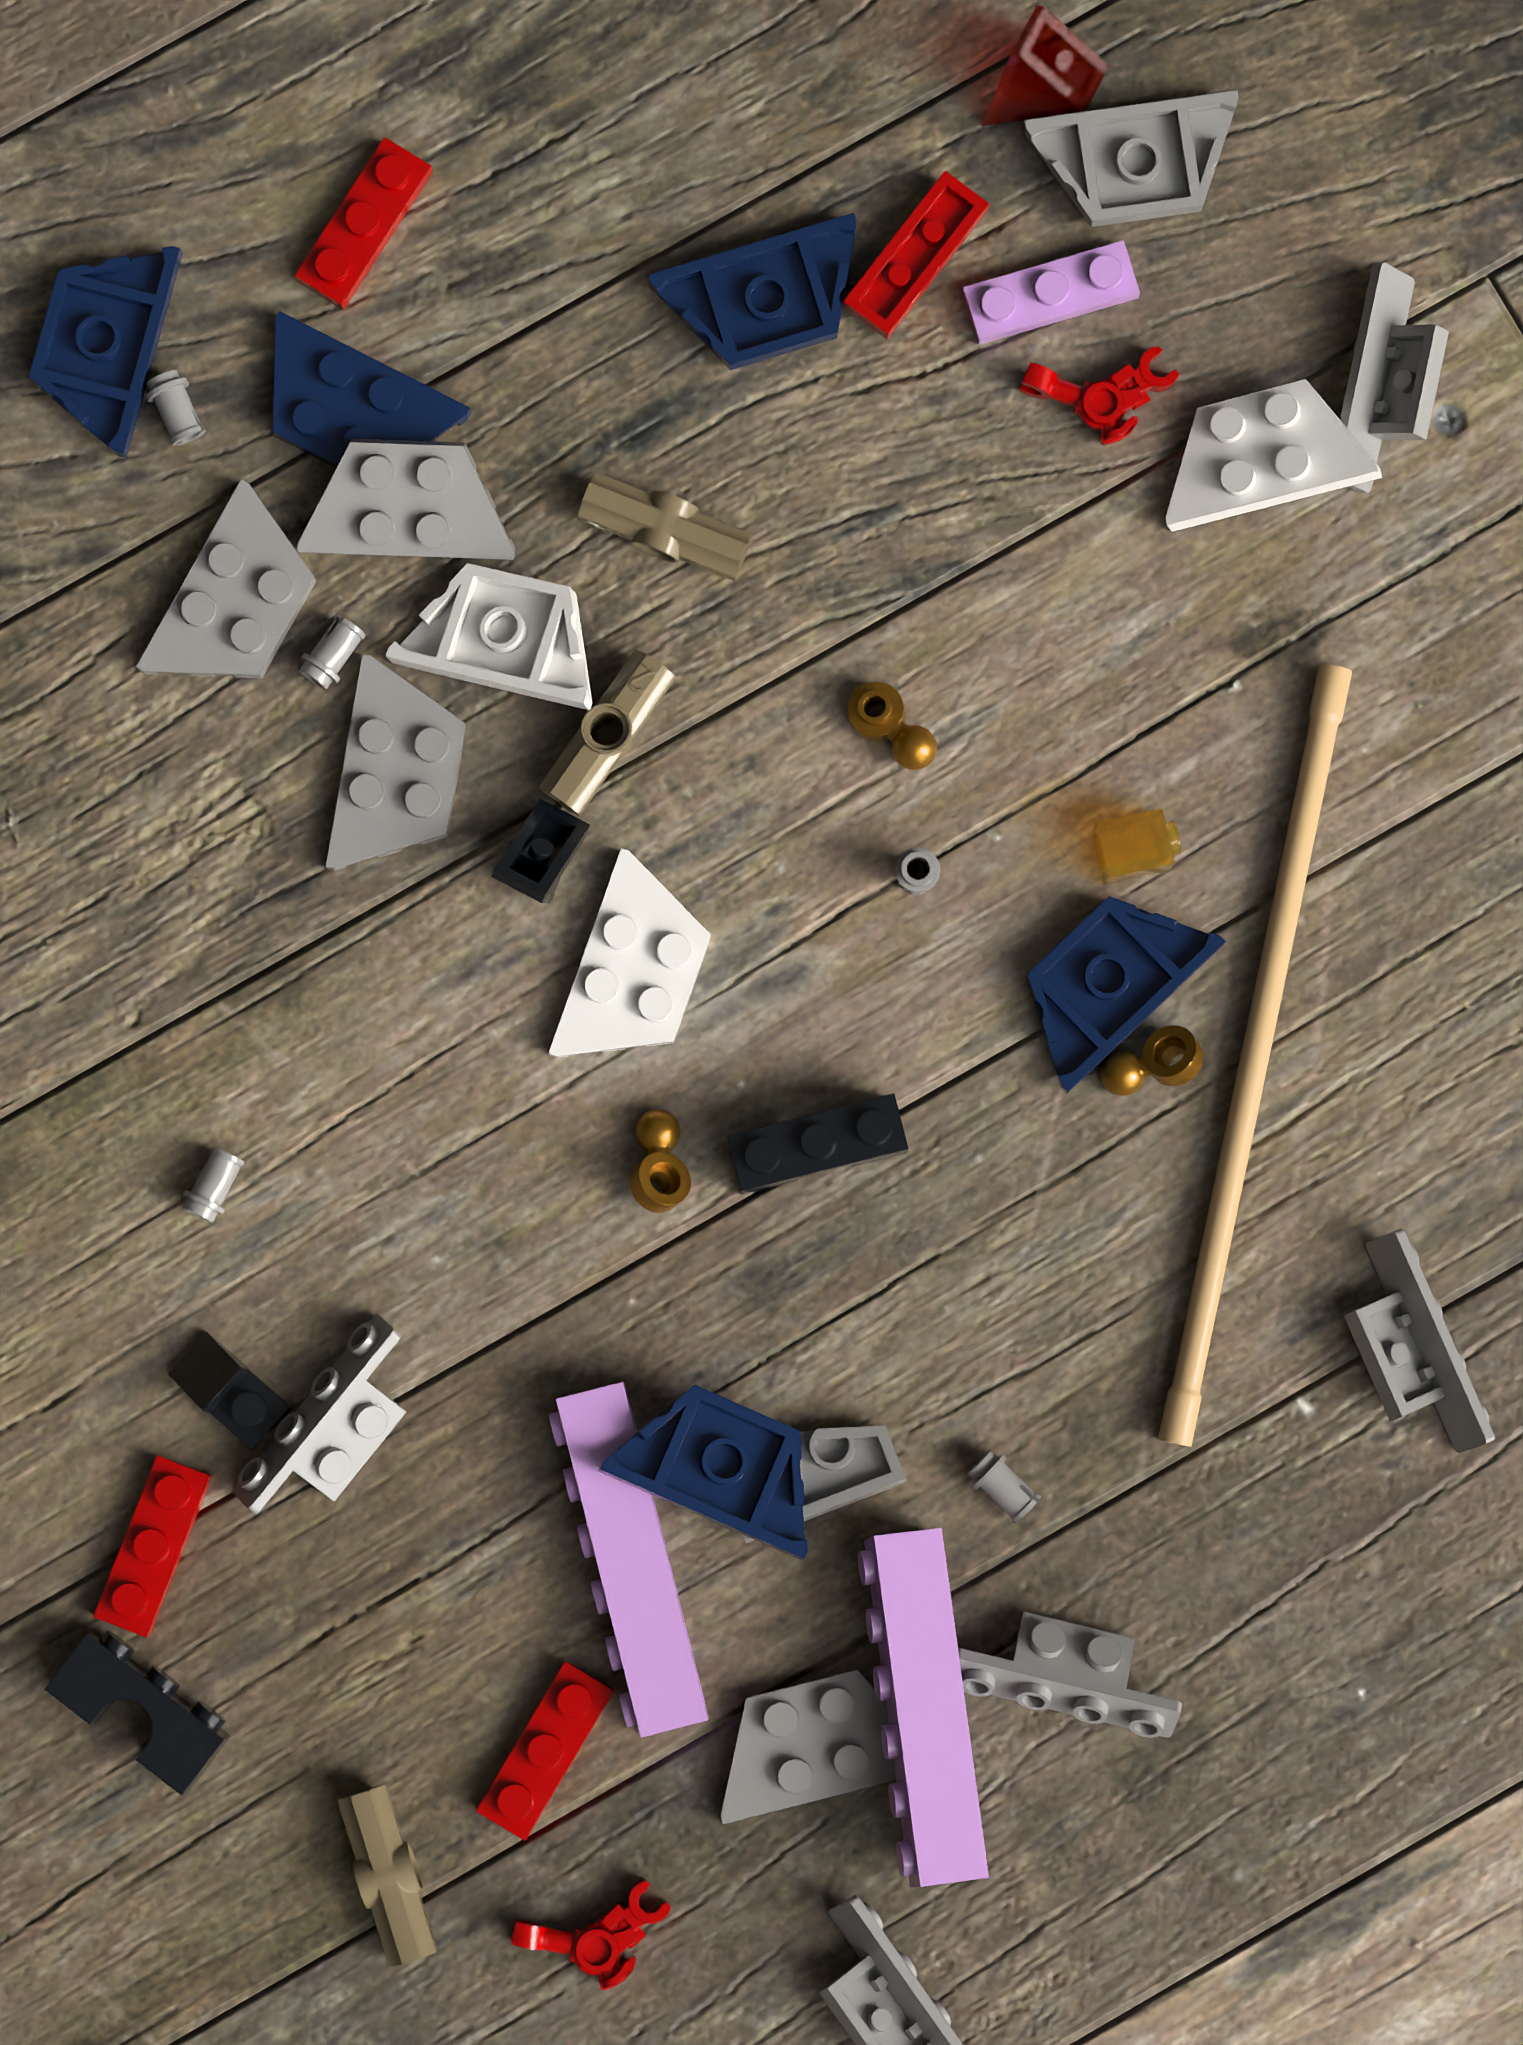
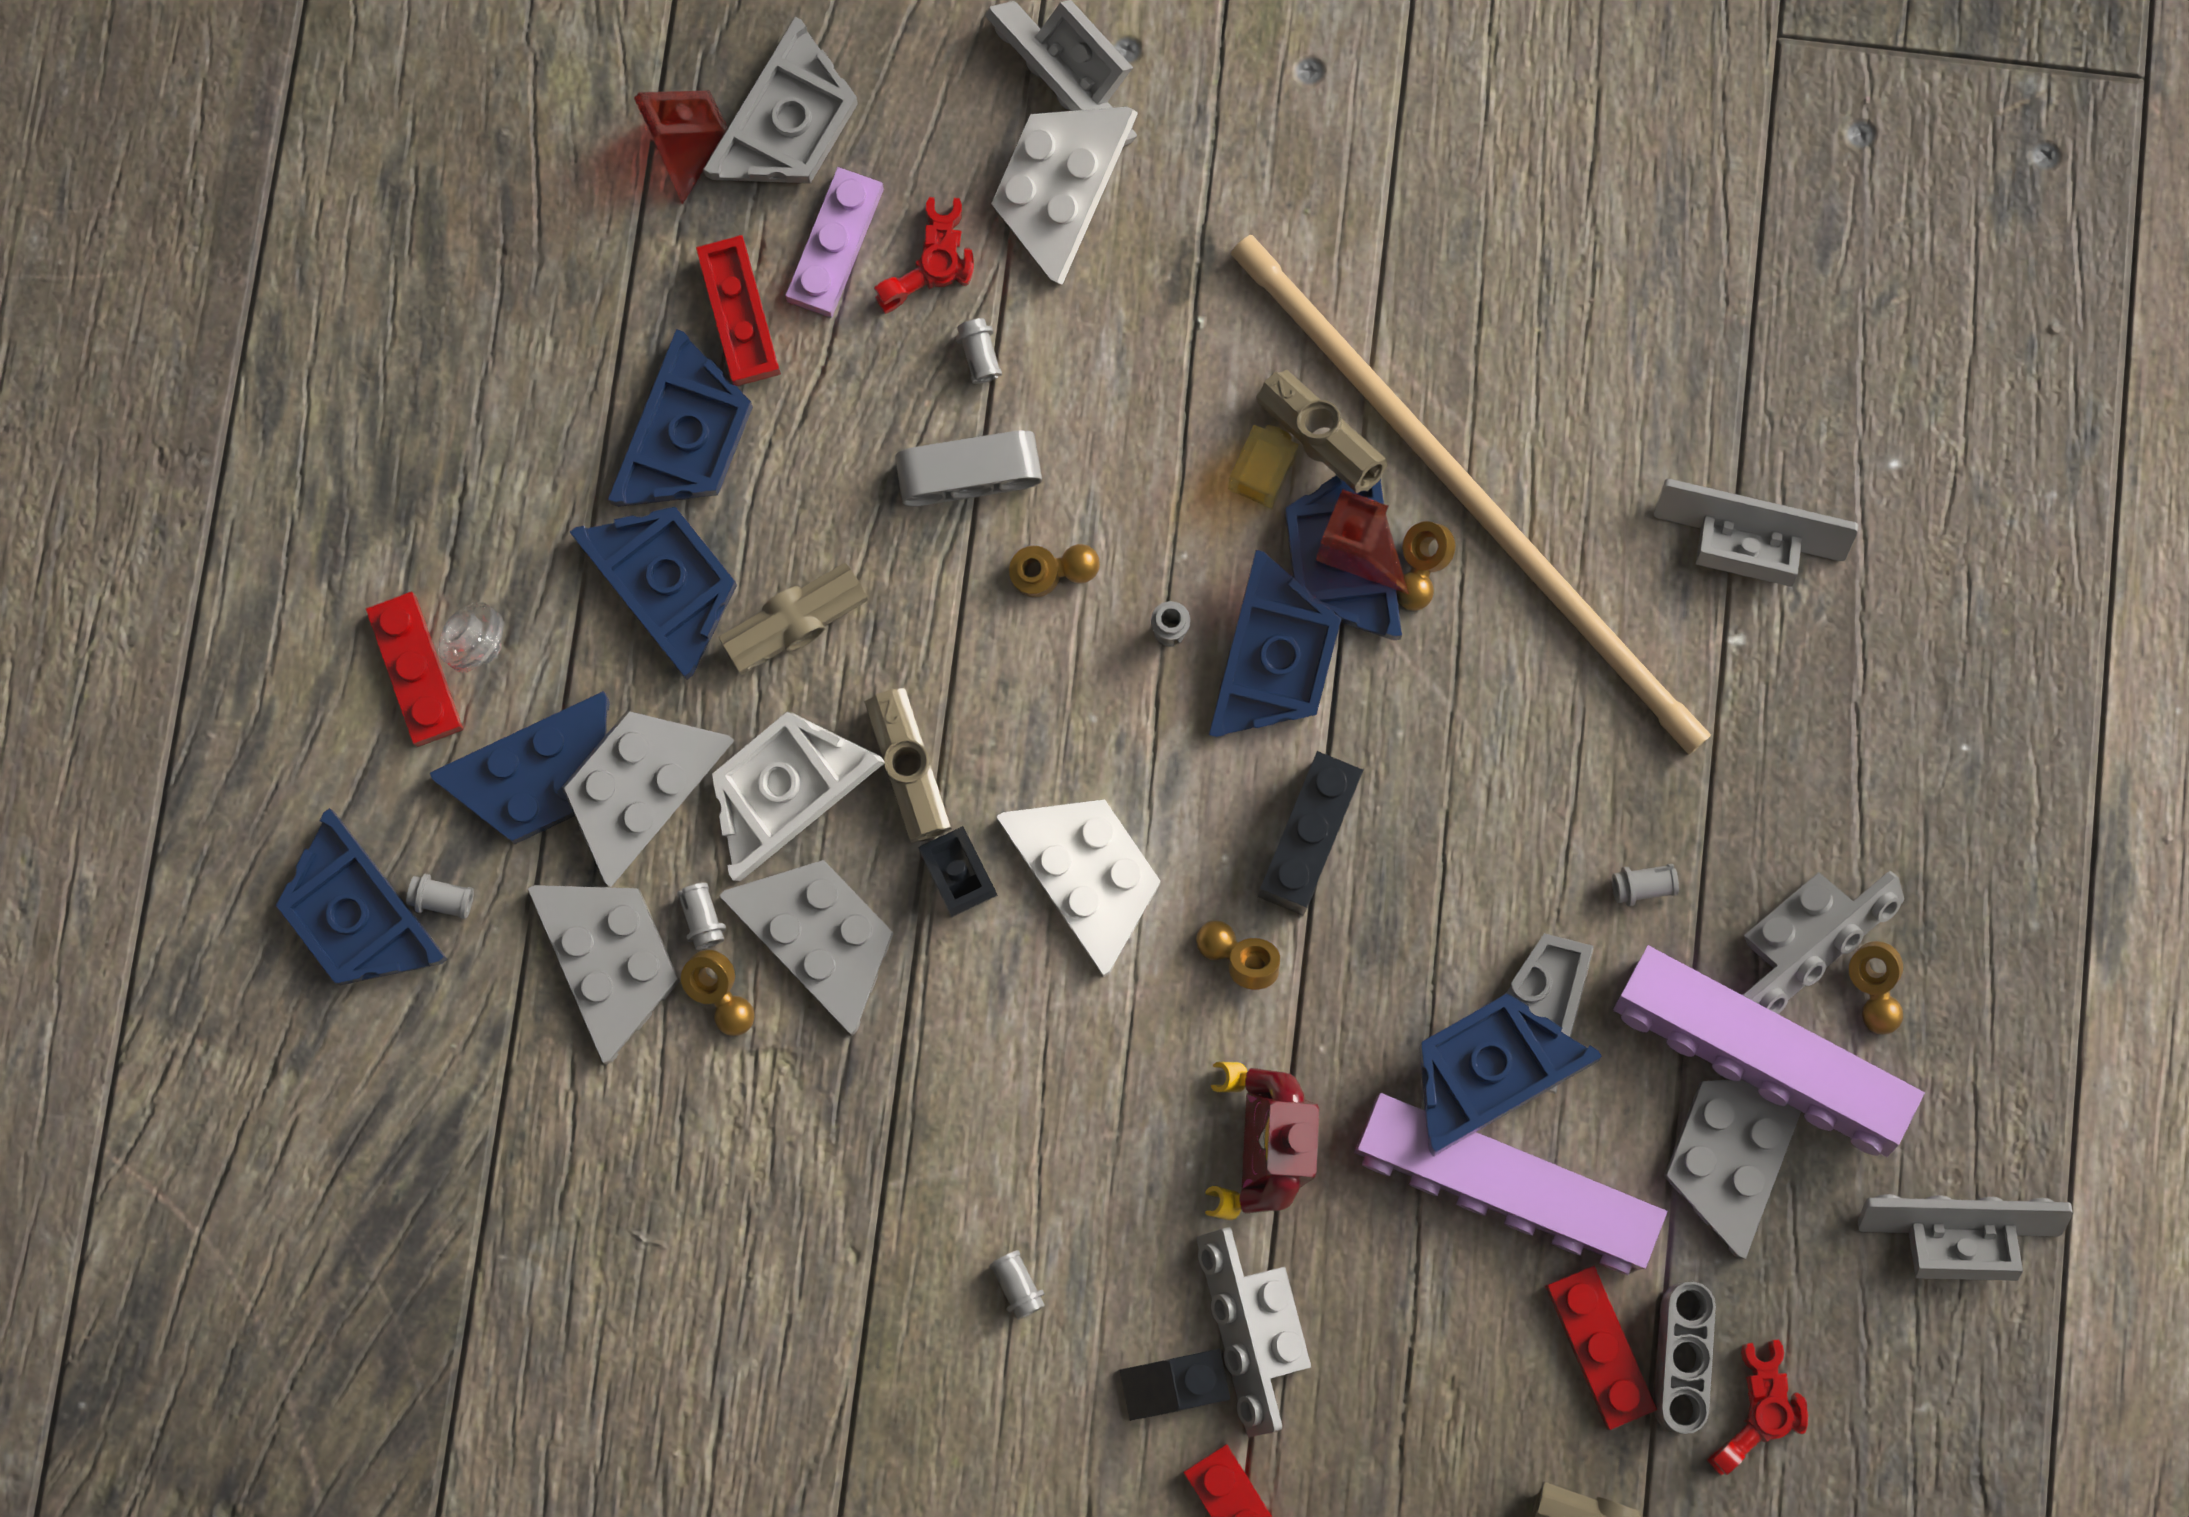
camera: 55 degrees left, 5 degrees down
(267, 748) = (732, 1013): none -> pearl gold plate
(427, 252) = (471, 637): none -> clear plate
(509, 1321) = (1277, 1141): none -> dark red torso
(568, 1851) = (1700, 1336): none -> light grey beam
(613, 382) = (664, 579): none -> dark blue wing
(926, 578) = (968, 468): none -> light grey beam
(963, 988) = (1275, 653): none -> dark blue wing
(1046, 503) = (979, 350): none -> light grey pin
(1047, 1789) = (1881, 1012): none -> pearl gold plate
(1128, 989) = (1362, 541): none -> clear red slope
(1199, 903) = (1339, 448): none -> dark tan piece

